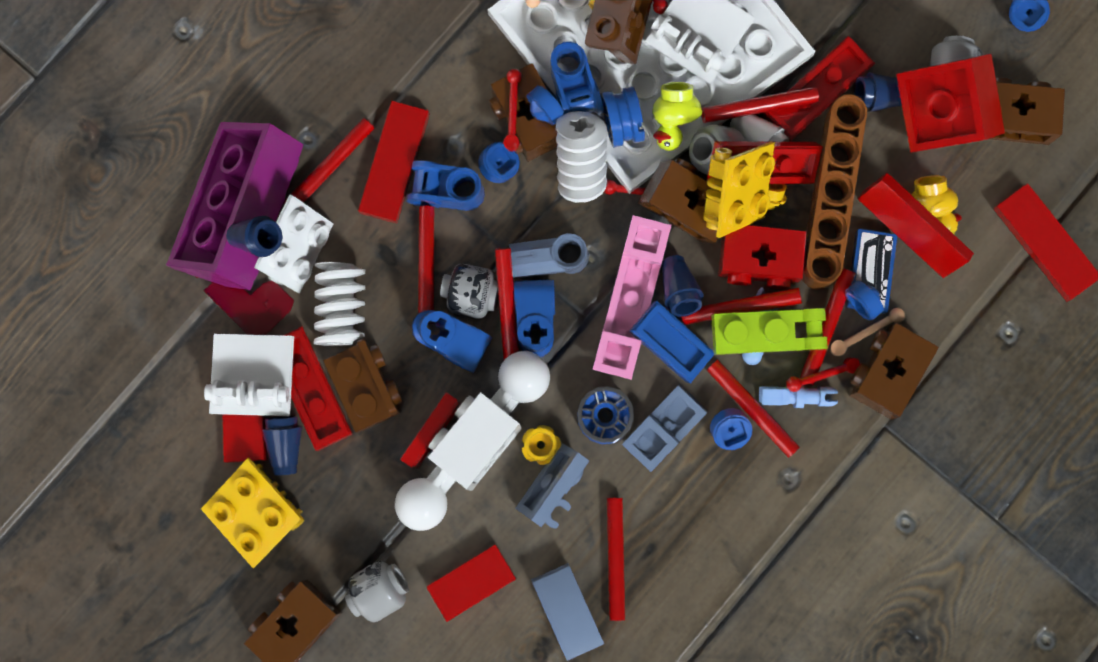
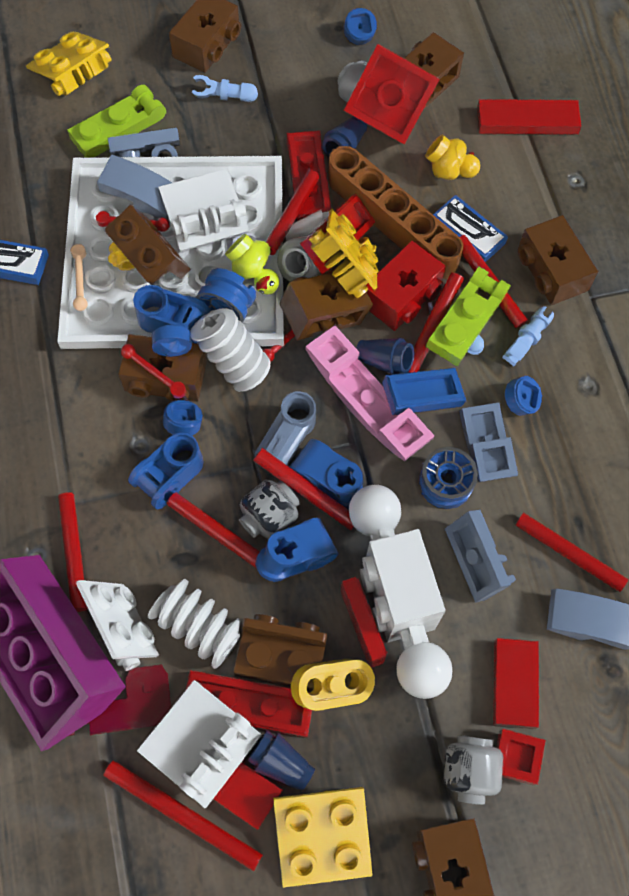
camera: 60 degrees left, 15 degrees down
(197, 400) = (183, 815): none -> red bar
(256, 236) = (88, 632): dark blue cone -> none
(361, 441) = (330, 685): none -> yellow plate
(393, 162) = (115, 498): red tile -> none
(413, 621) = (521, 756): none -> red plate
(532, 437) = (444, 538): yellow plate -> none
(753, 408) = (507, 373): red bar -> none
(839, 347) = (513, 236): light nougat hinge -> none
(849, 365) = (521, 325): red hinge -> none
(864, 300) = (492, 238): blue tile -> none
(915, 225) = (459, 175): red tile -> none

